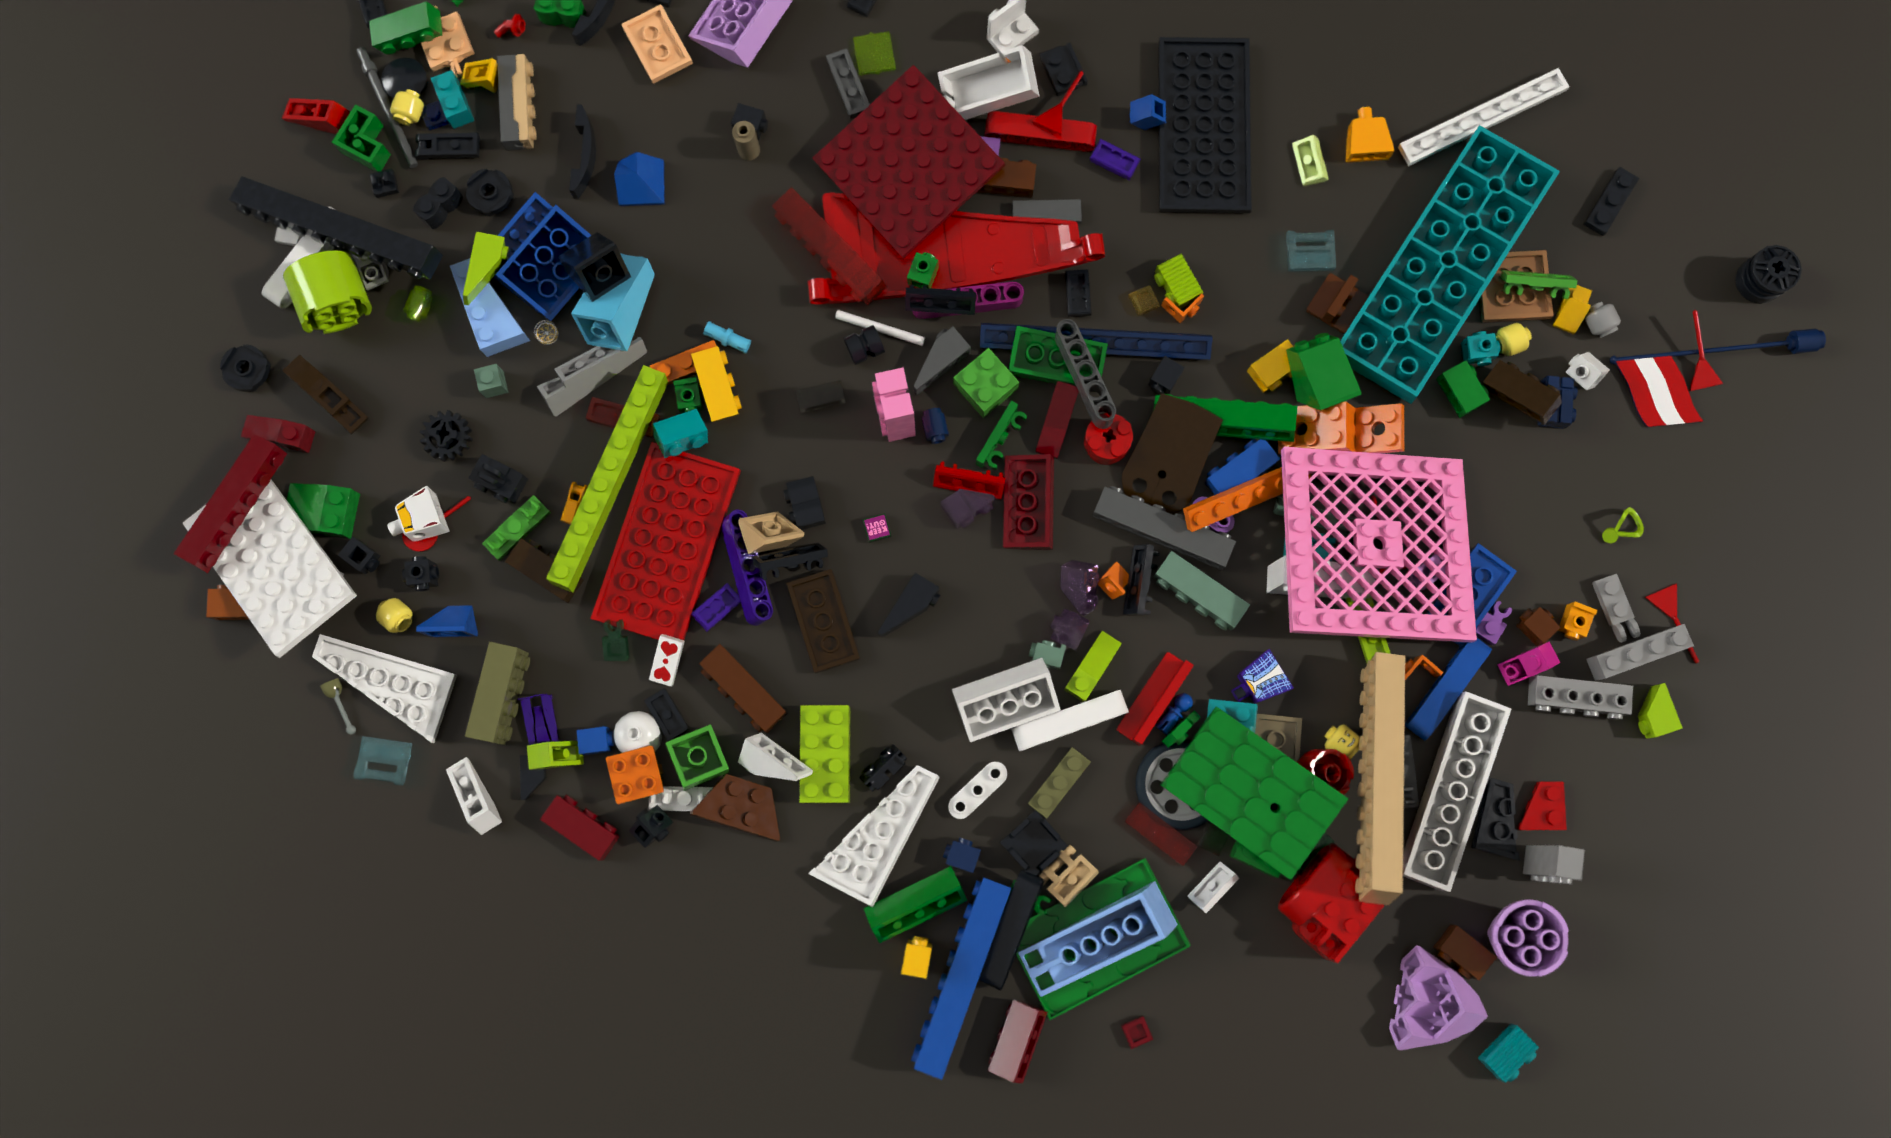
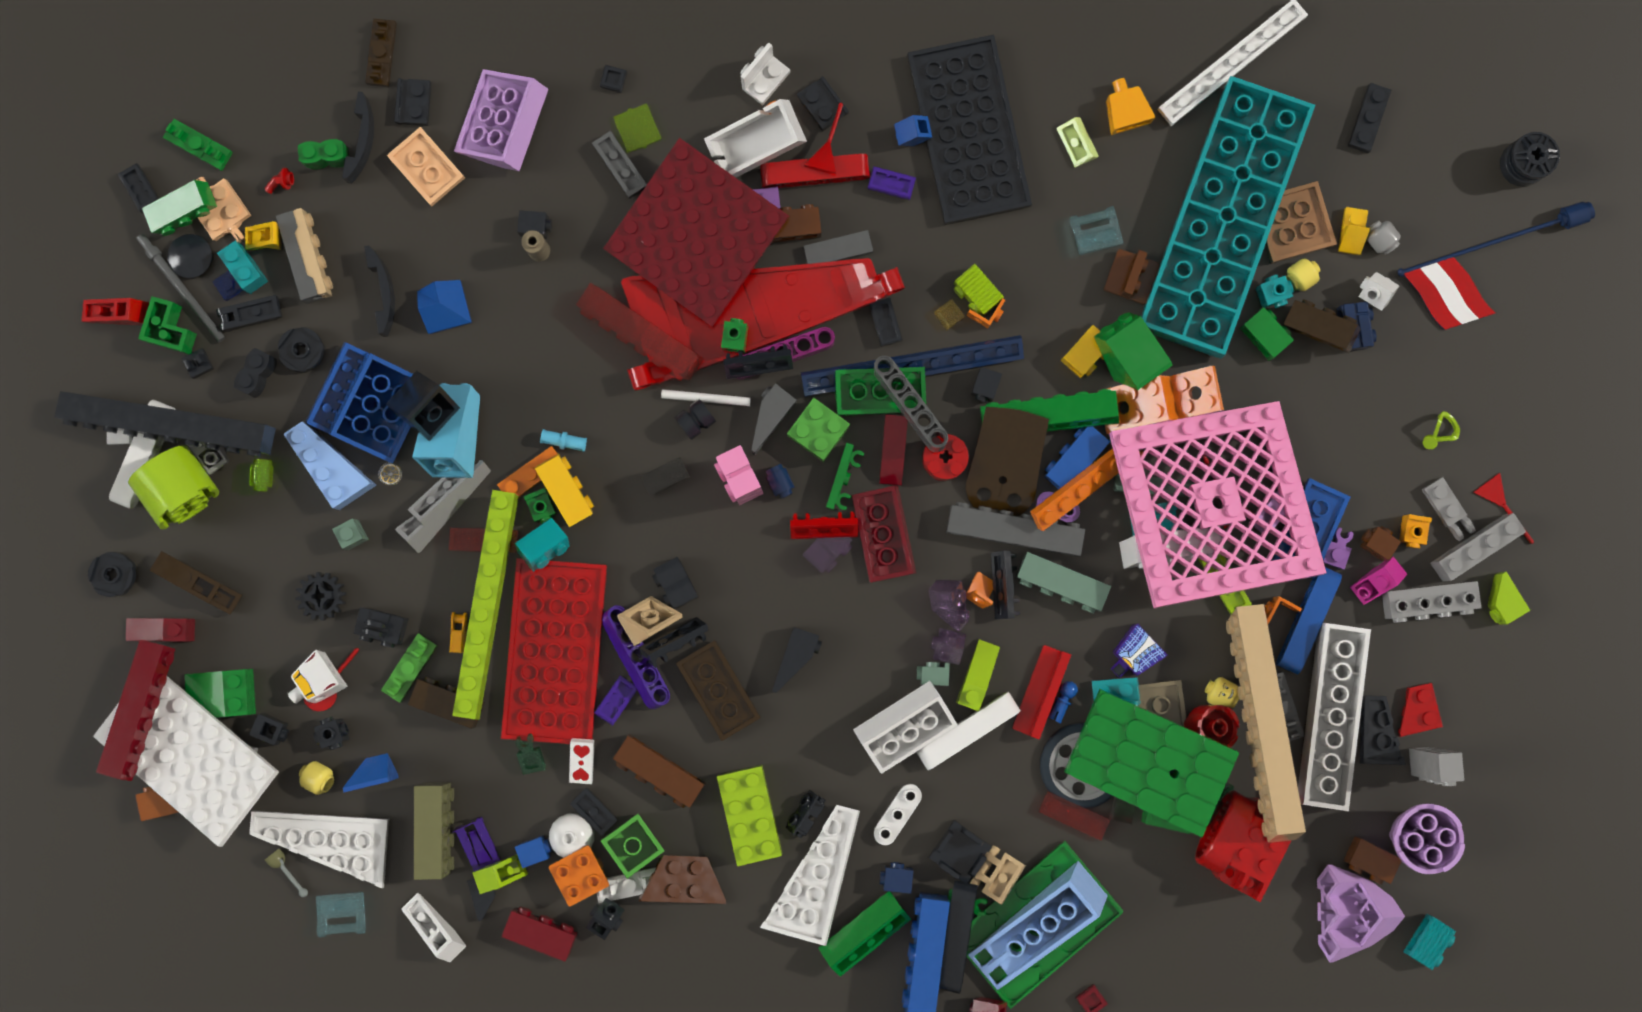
camera: 15 degrees left, 5 degrees up
(407, 107) = (200, 285): light yellow head -> none
(484, 263) = (316, 426): lime slope -> none
(768, 759) = (702, 834): white slope -> none
(877, 528) = (747, 590): tile -> none
(917, 957) = (878, 983): yellow brick -> none
(1059, 782) = (970, 790): olive plate -> none
(1179, 733) = (1071, 719): green plate -> none
(1213, 887) = (1132, 854): white plate -> none
(1538, 281) = (1316, 215): bright green plate -> none
(1704, 374) = (1488, 267): red piece -> none

